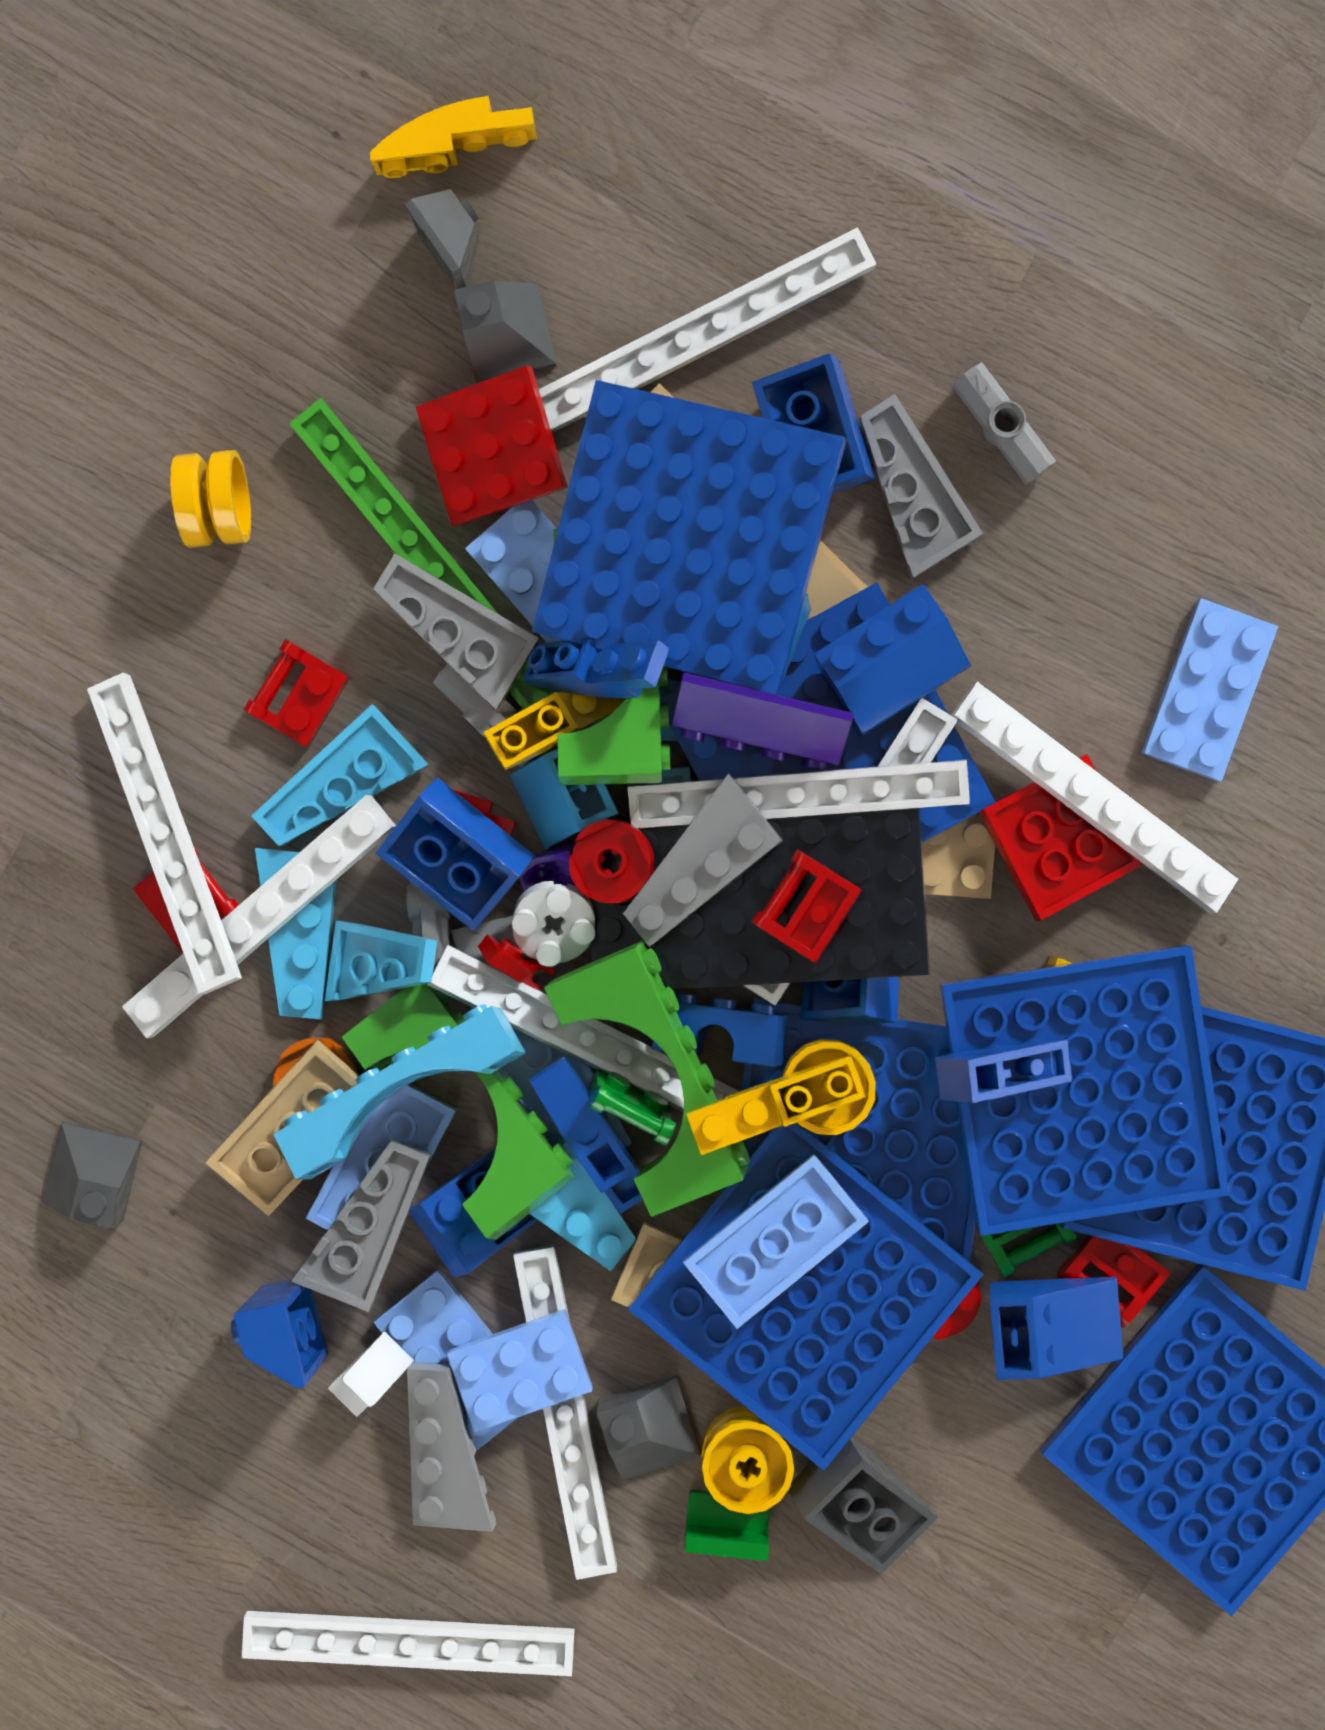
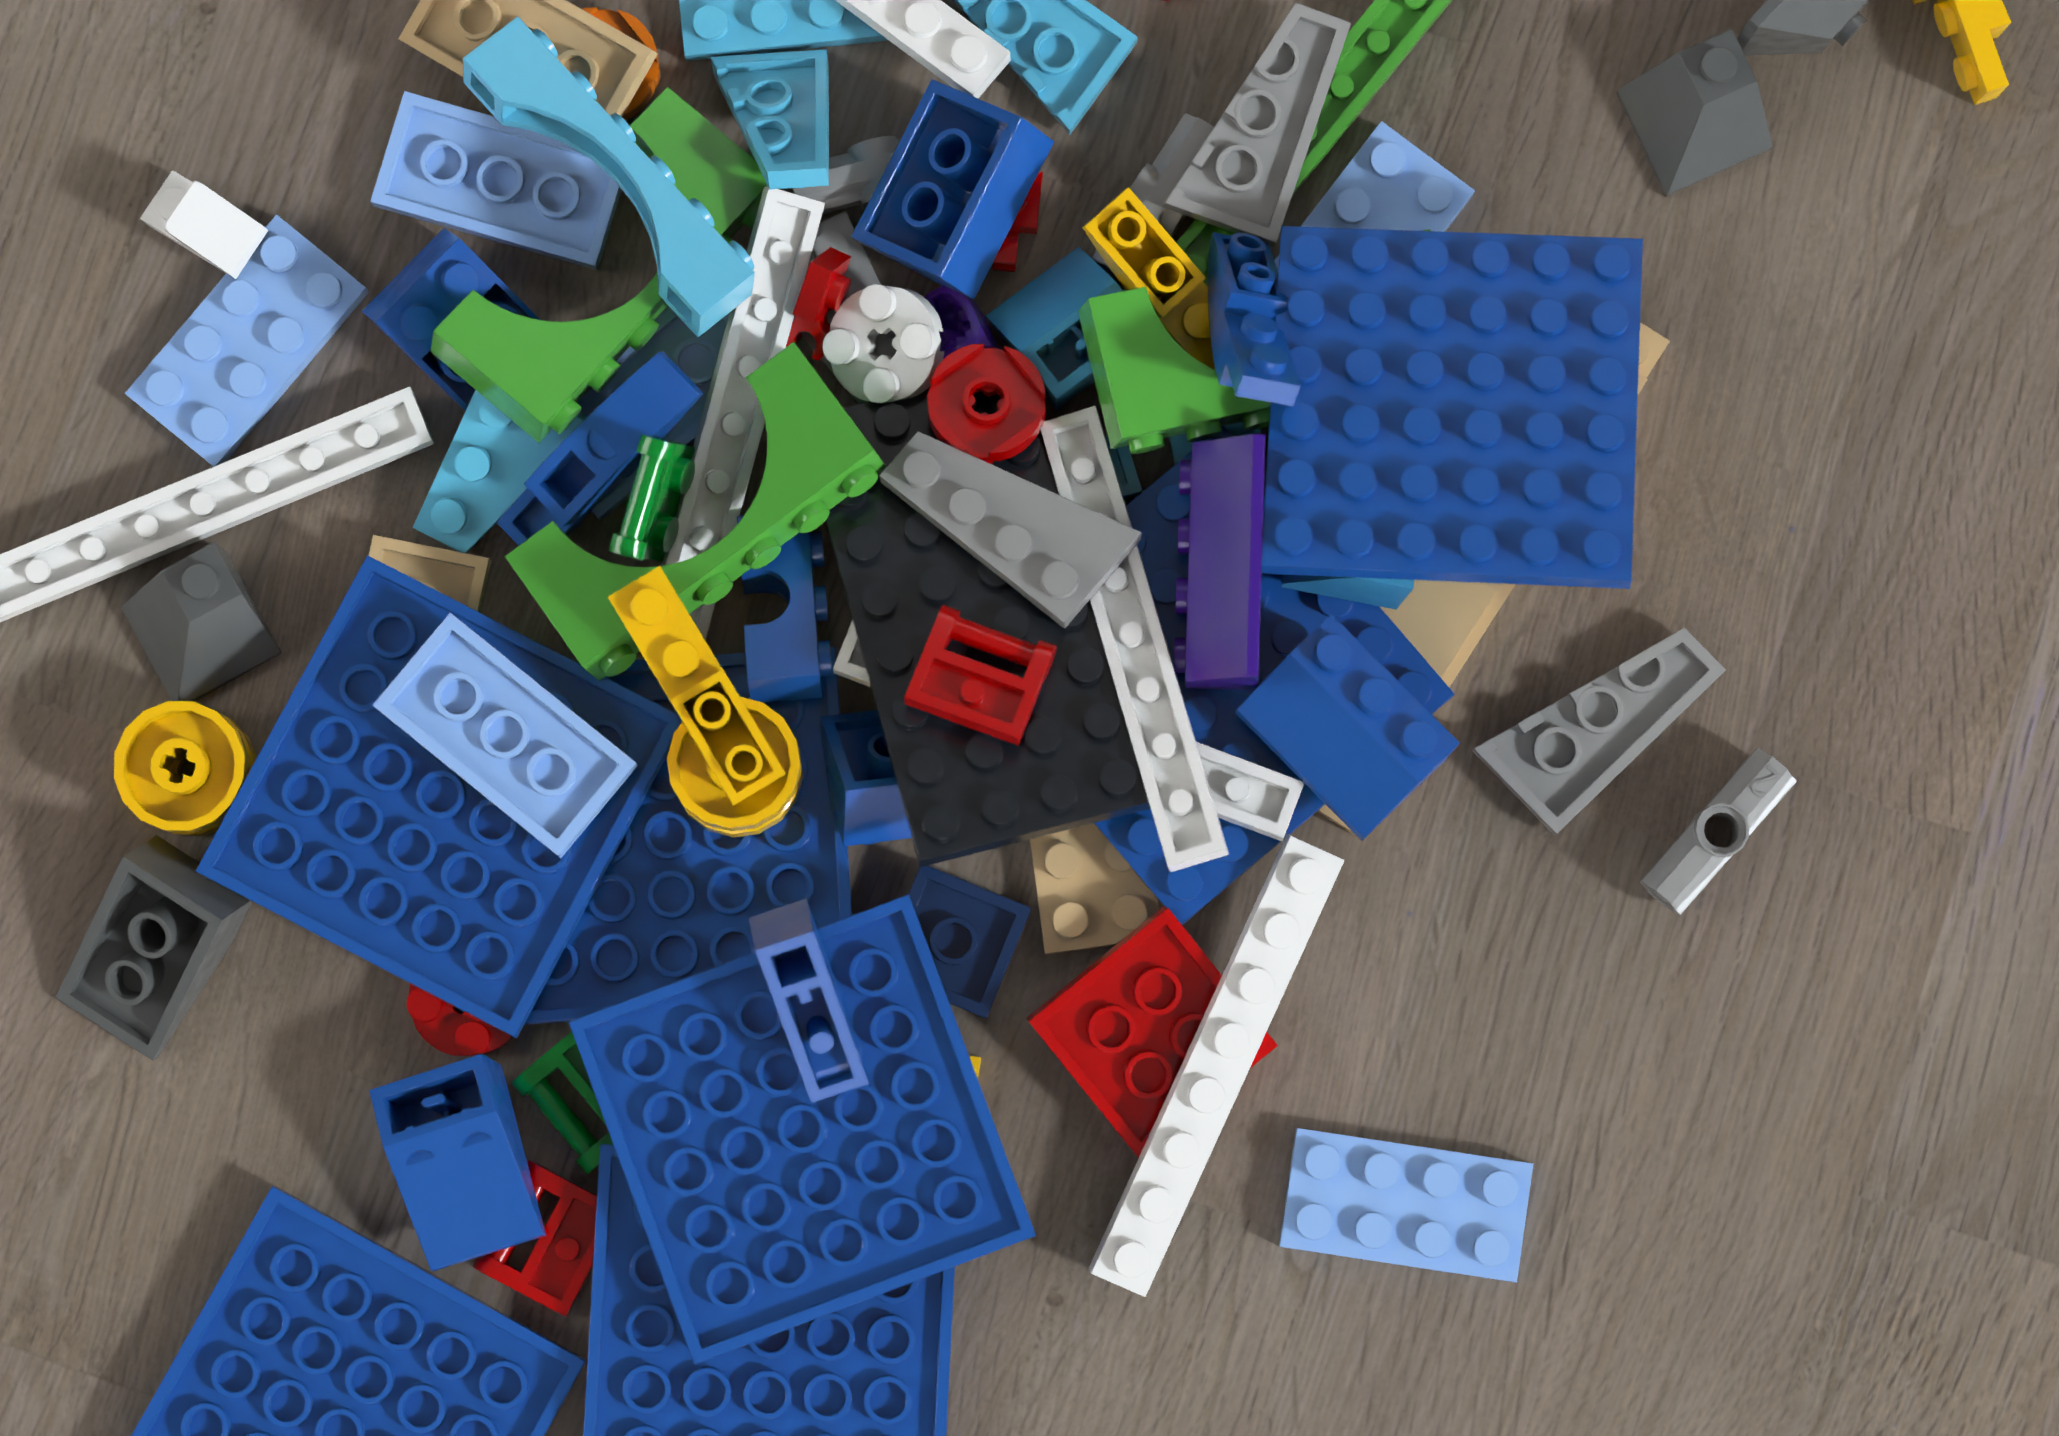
camera: 80 degrees right, 5 degrees down
(281, 1331) = (247, 87): blue slope -> none
(362, 1239) = (389, 172): light grey wing -> none
(442, 1459) = (91, 350): light grey wing -> none
(491, 446) = (1529, 126): red plate -> none
(519, 1370) = (250, 427): light blue plate -> none
(711, 325) = (1740, 367): white plate -> none
(722, 1532) = (81, 764): green panel -> none
(818, 399) = (1682, 566): blue slope -> none
(971, 949) = (968, 935): none -> dark blue plate

